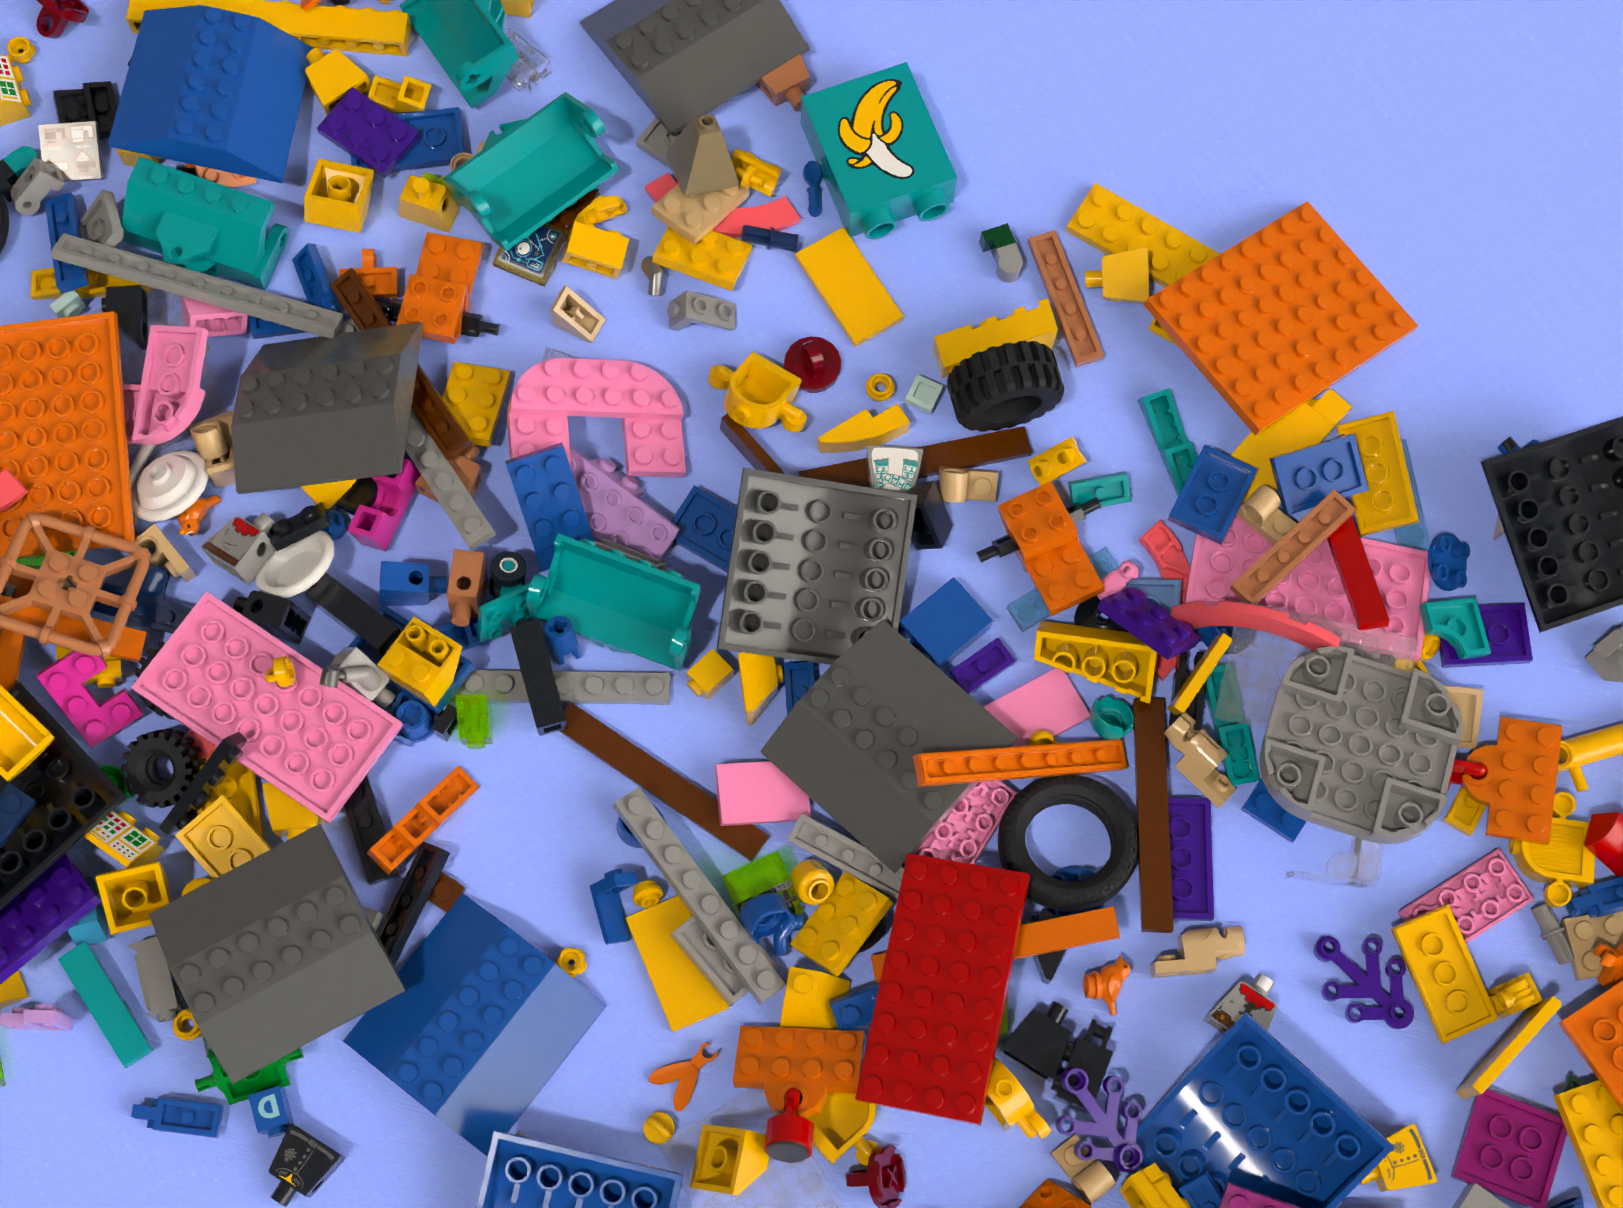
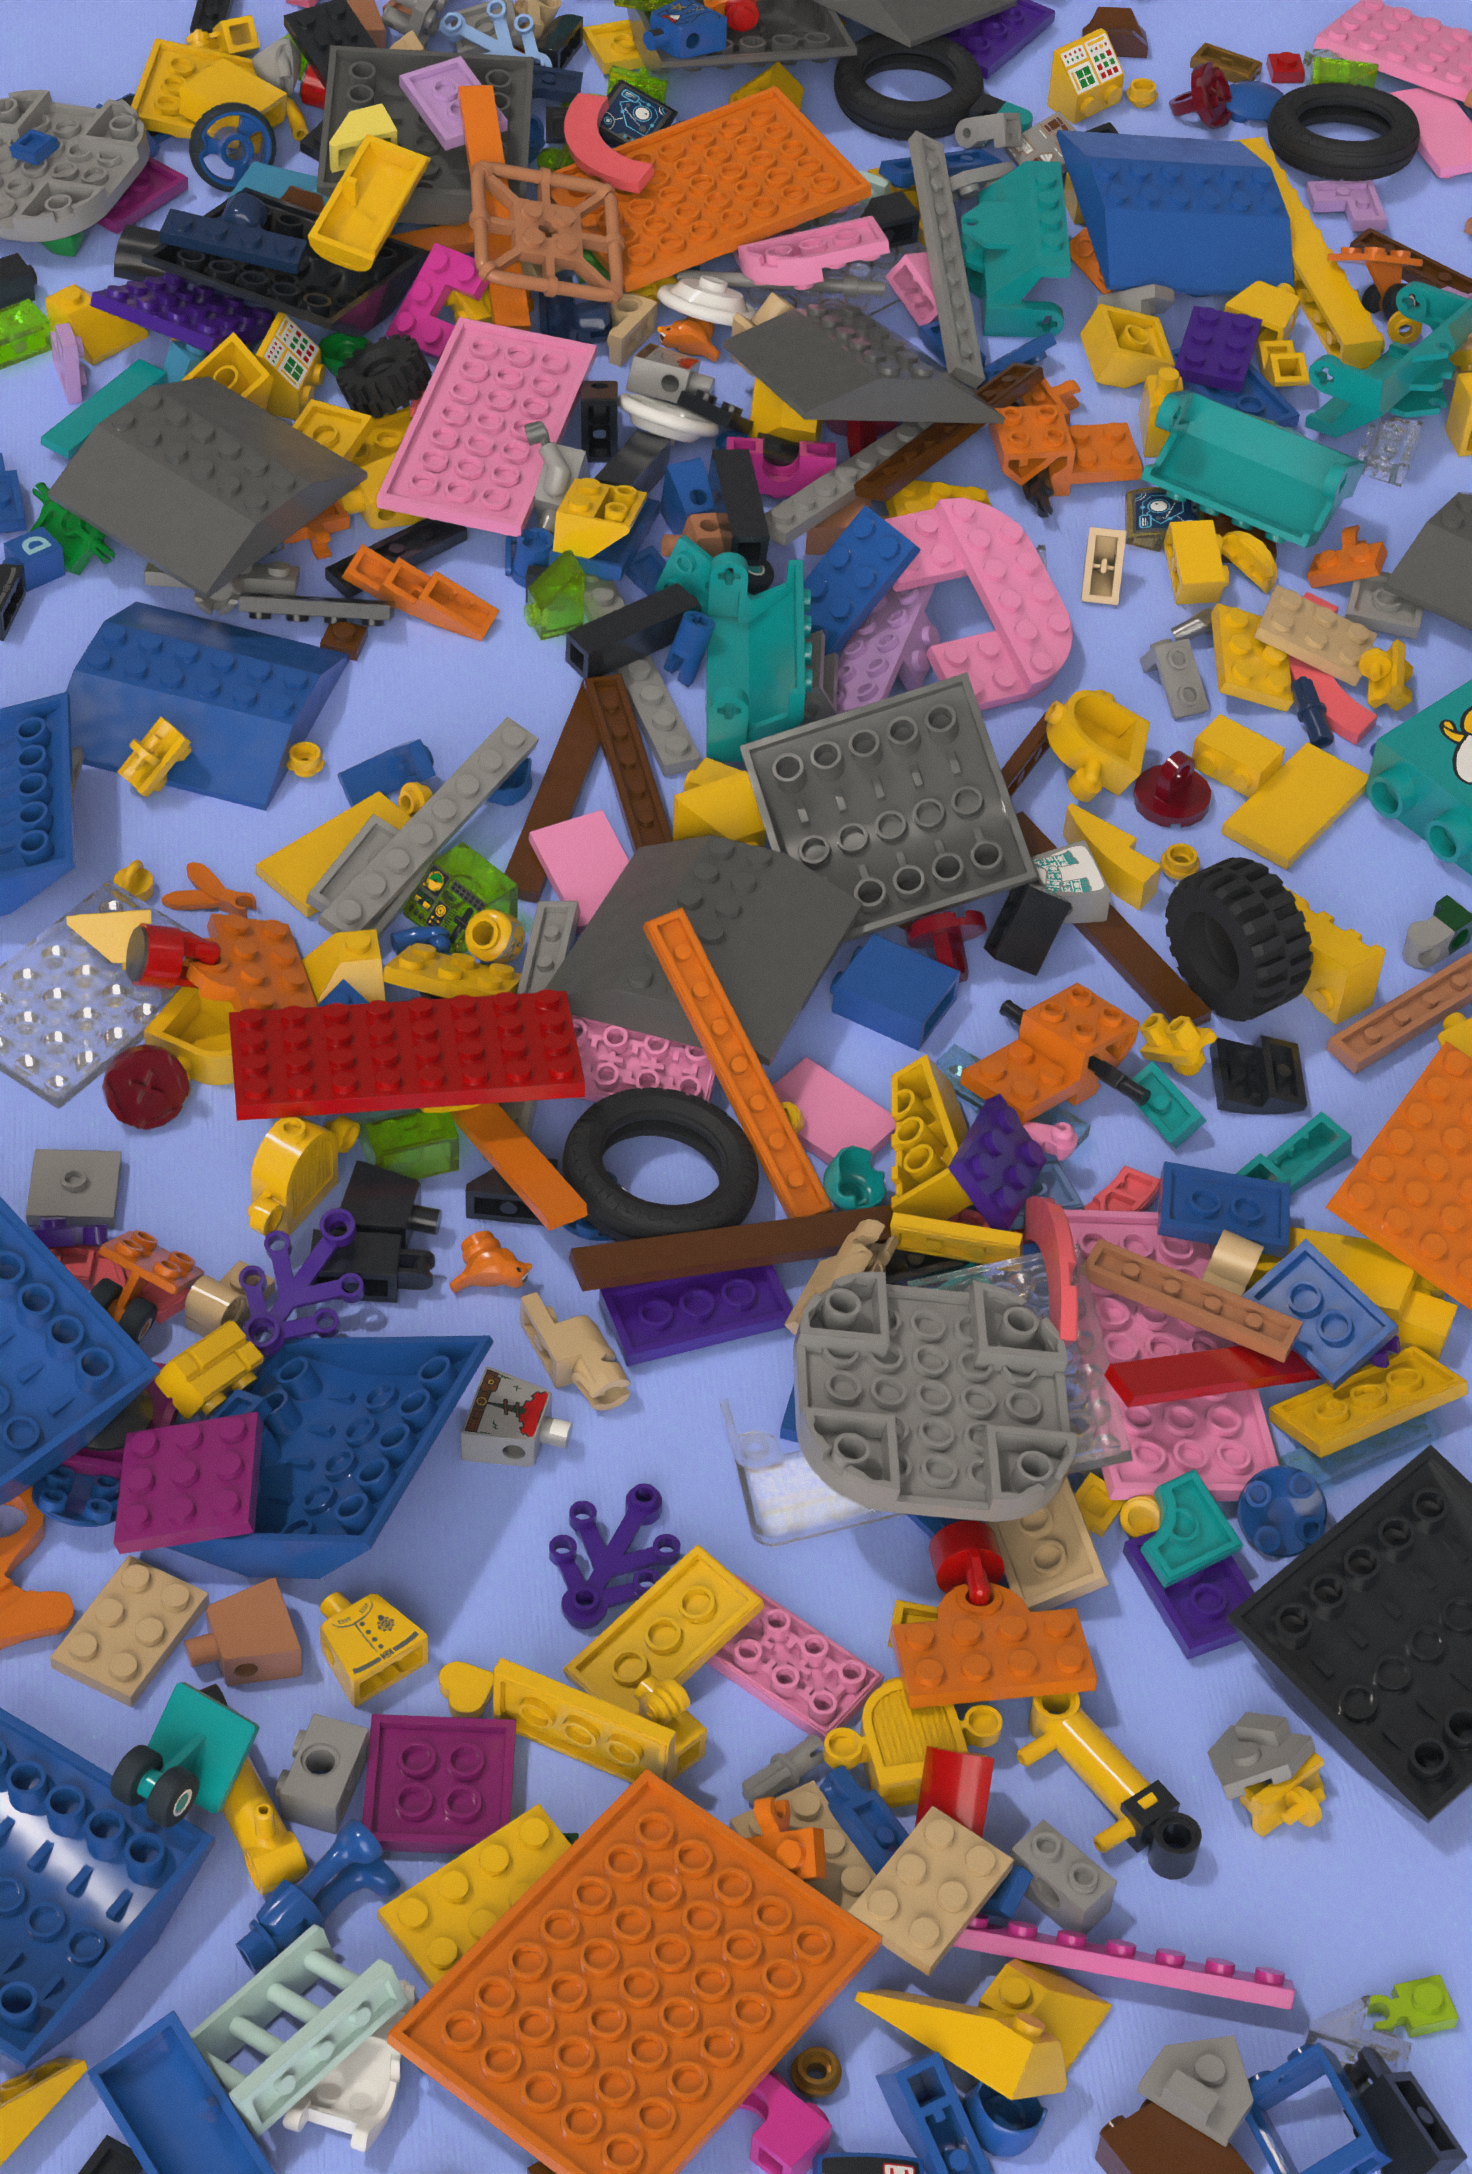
camera: 70 degrees right, 25 degrees down
(208, 777) = (386, 394): black plate -> none
(282, 672) = (530, 409): yellow tile -> none
(297, 168) = (1146, 299): none -> light grey plate
(462, 555) = (738, 505): none -> black brick
(547, 1076) = (154, 757): none -> yellow hips
(633, 145) = (1351, 563): none -> orange plate
(670, 728) = (627, 761): none -> reddish brown tile
(702, 158) = (1369, 603): dark tan slope -> none
(764, 915) = (429, 893): blue hair -> none
(797, 307) = (1236, 755): none -> yellow brick
(919, 571) = (947, 936): none -> dark red tile
(965, 483) = (1095, 963): tan plate -> none
(982, 666) = (858, 1043): dark purple plate -> none
(1089, 419) = (1258, 1077): none -> black slope
(1440, 1108) = (465, 1688): none -> yellow tile

